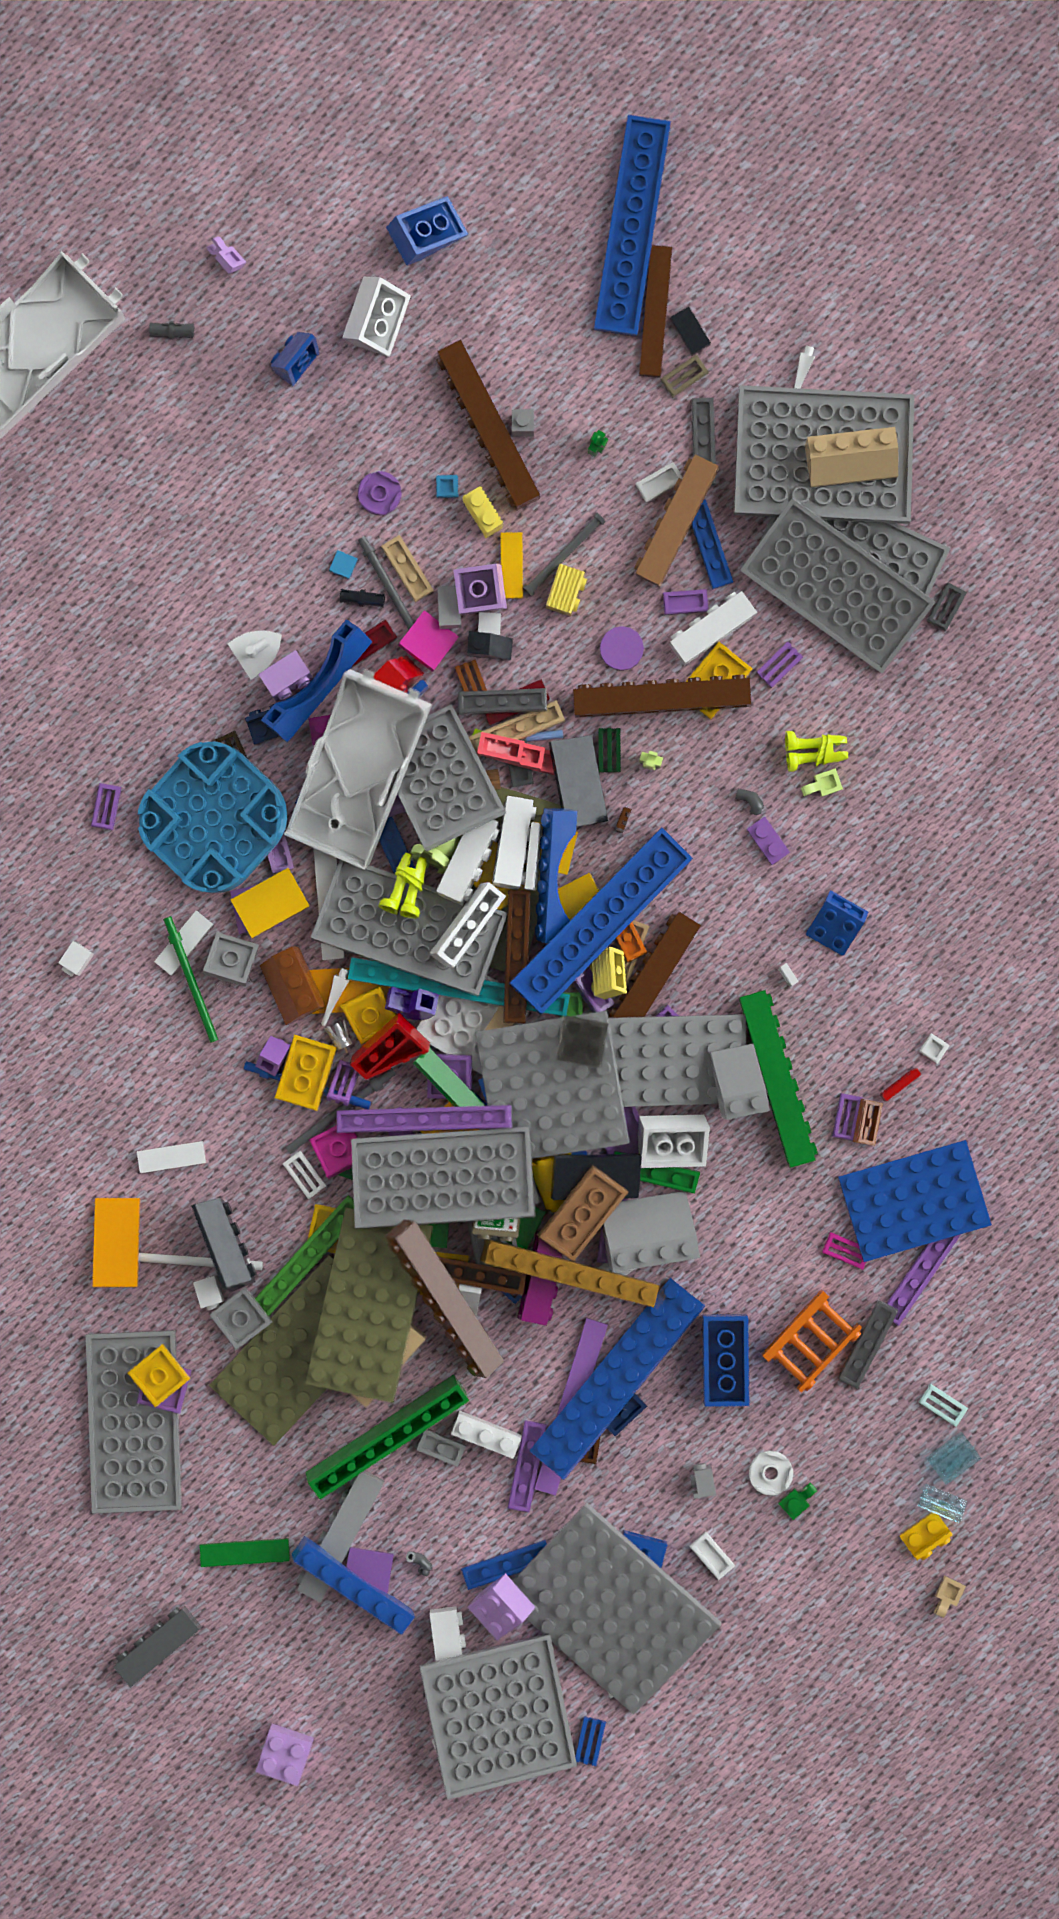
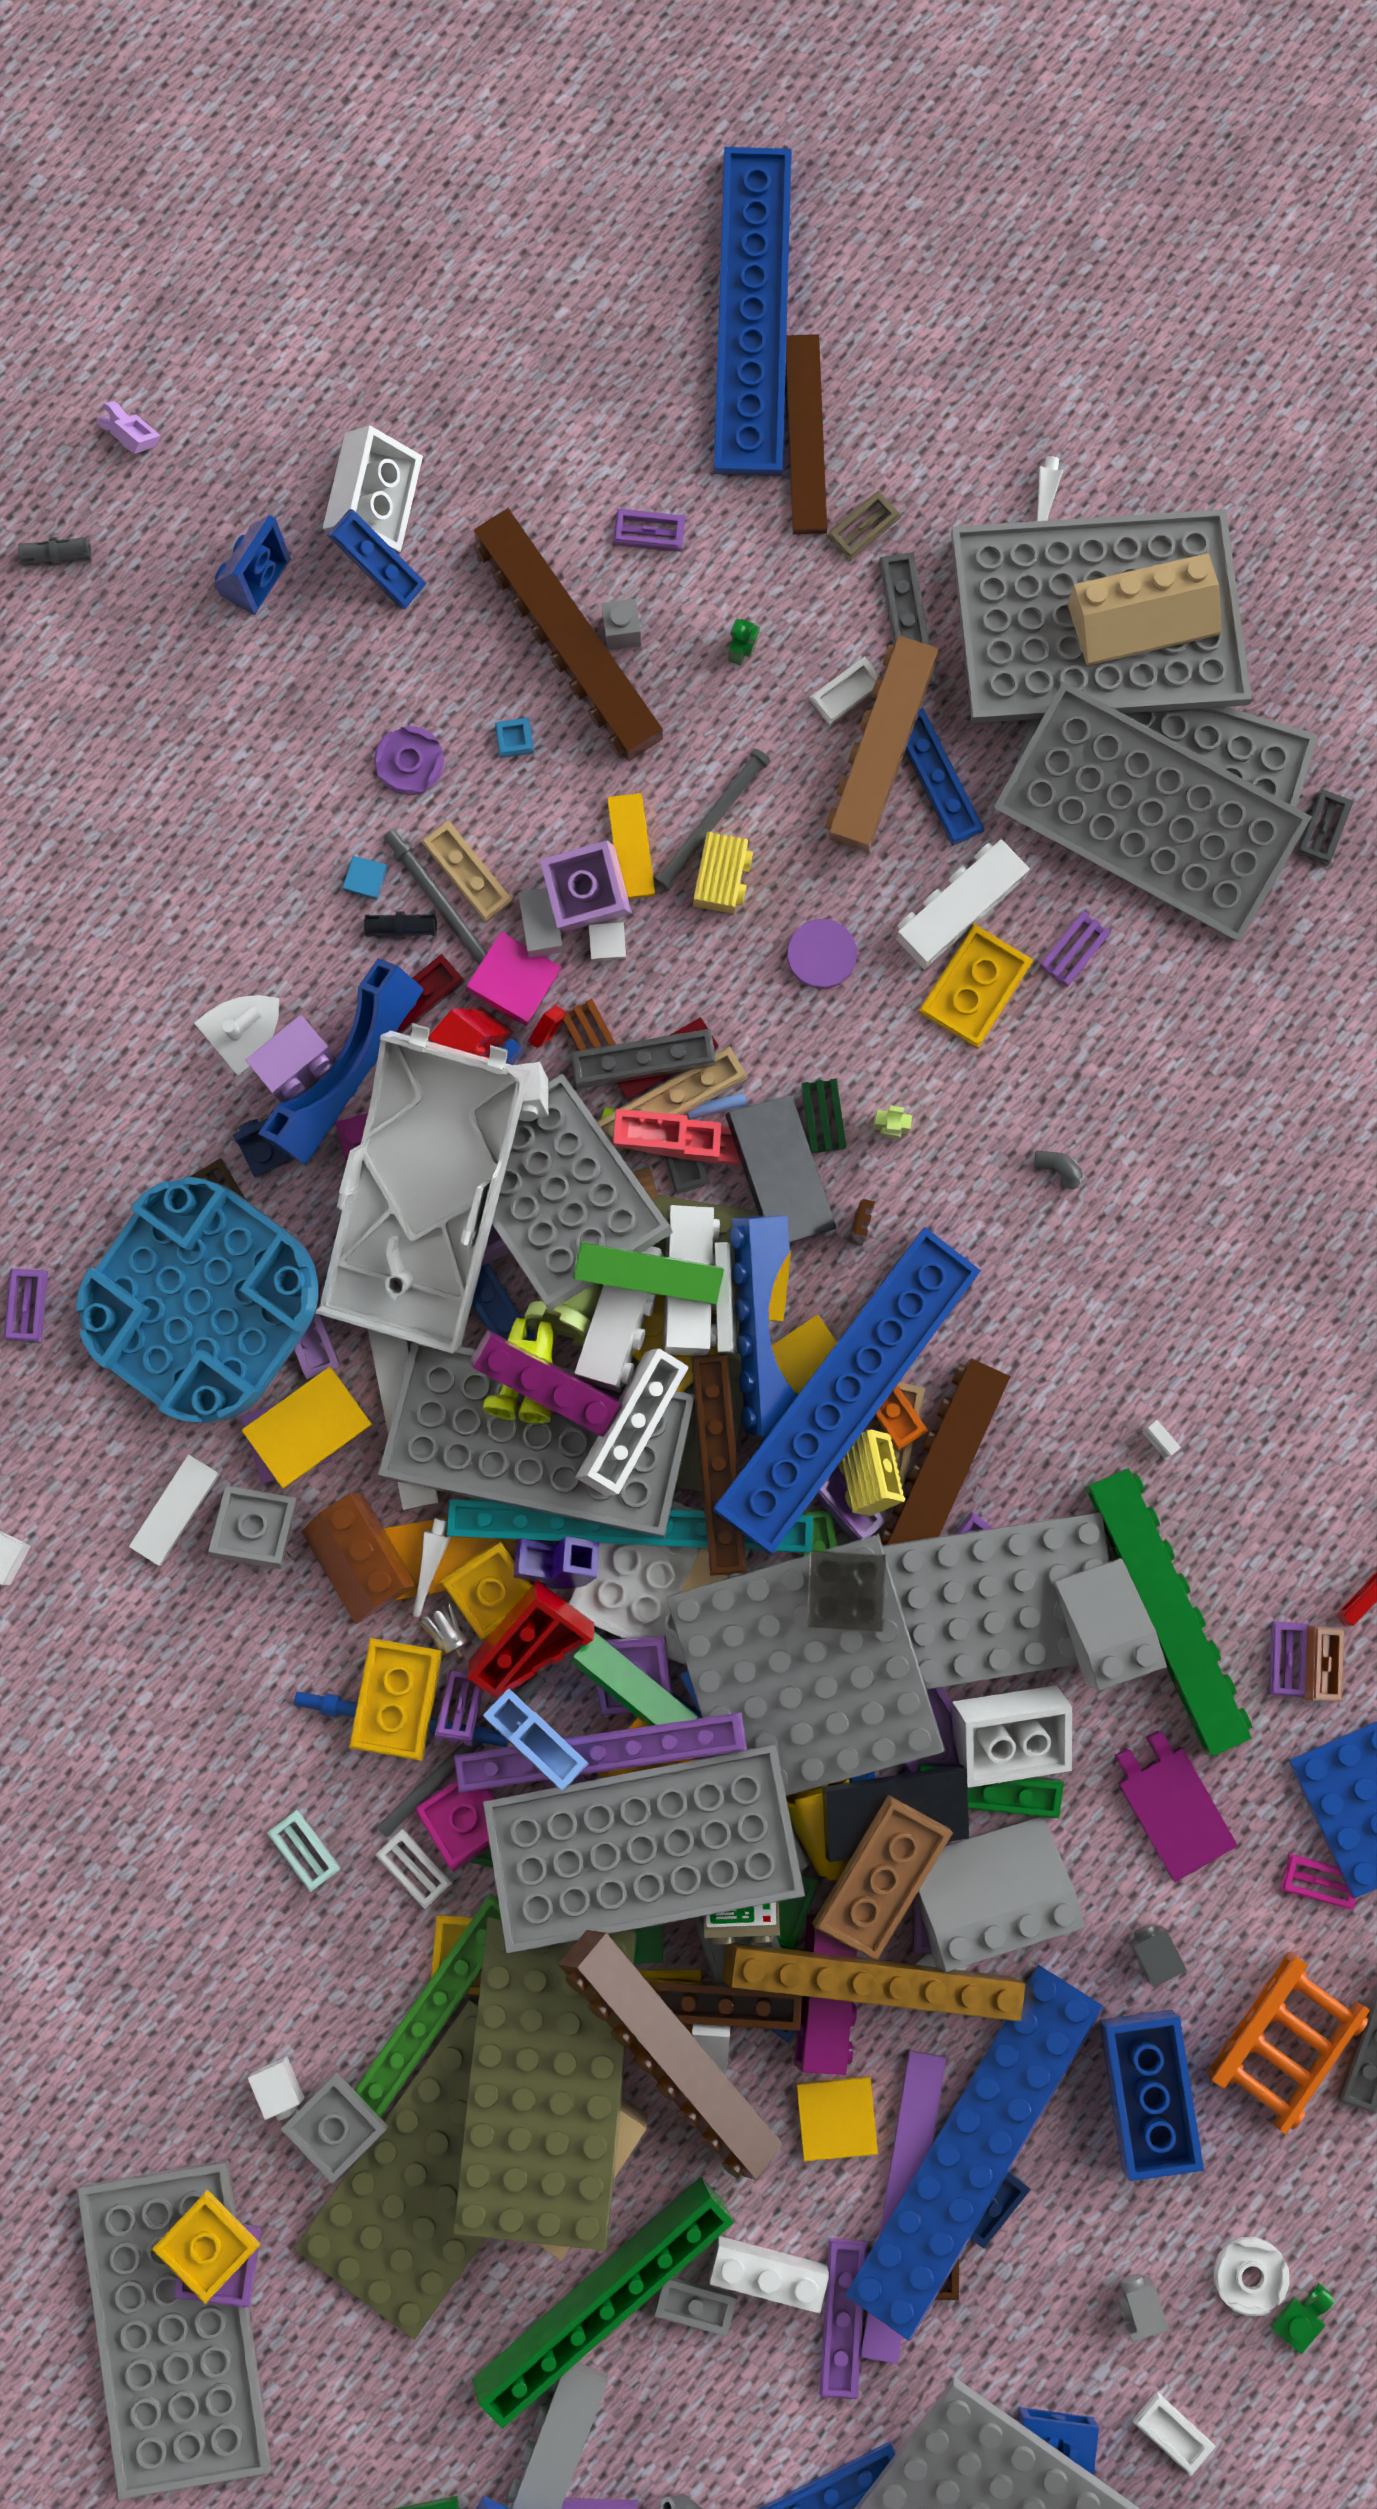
camera: 10 degrees left, 5 degrees down
(116, 1242) = (113, 2024): light orange tile -> none
(171, 1157) = (190, 1867): white tile -> none
(175, 938) = (158, 1505): green bar -> none
(186, 1260) = (332, 2033): white bar -> none
(224, 1244) = (291, 2006): slope -> none
(249, 1172) = (316, 1843): none -> light aqua tile
(272, 1055) = (339, 1677): medium lavender brick -> none
(374, 363) = (376, 559): none -> blue tile
(386, 1106) = (535, 1739): none -> light blue slope
(417, 894) = (544, 1383): none -> magenta brick
(426, 230) = (433, 353): blue slope -> none
(434, 716) = (536, 1094): none -> white brick
(445, 674) = (547, 1027): none -> red tile
(483, 512) = (575, 768): light yellow brick -> none
(488, 836) = (648, 1273): none -> bright green tile
(489, 646) = (611, 975): black slope -> none
(538, 1351) = (837, 2118): none -> yellow tile
(566, 367) = (646, 542): none -> medium lavender tile
(662, 697) = (898, 1020): reddish brown brick -> none
(685, 602) = (912, 869): medium lavender tile -> none
(690, 330) = (863, 457): black tile -> none
(741, 1280) = (1156, 1954): none -> dark grey brick
(764, 1196) = (1174, 1808): none -> magenta tile
(768, 840) = (1096, 1228): medium lavender plate -> none
(823, 744) = (1167, 1080): neon yellow piece -> none
(825, 783) = (1175, 1126): yellowish green plate -> none
(837, 923) = (1227, 1346): blue bracket -> none

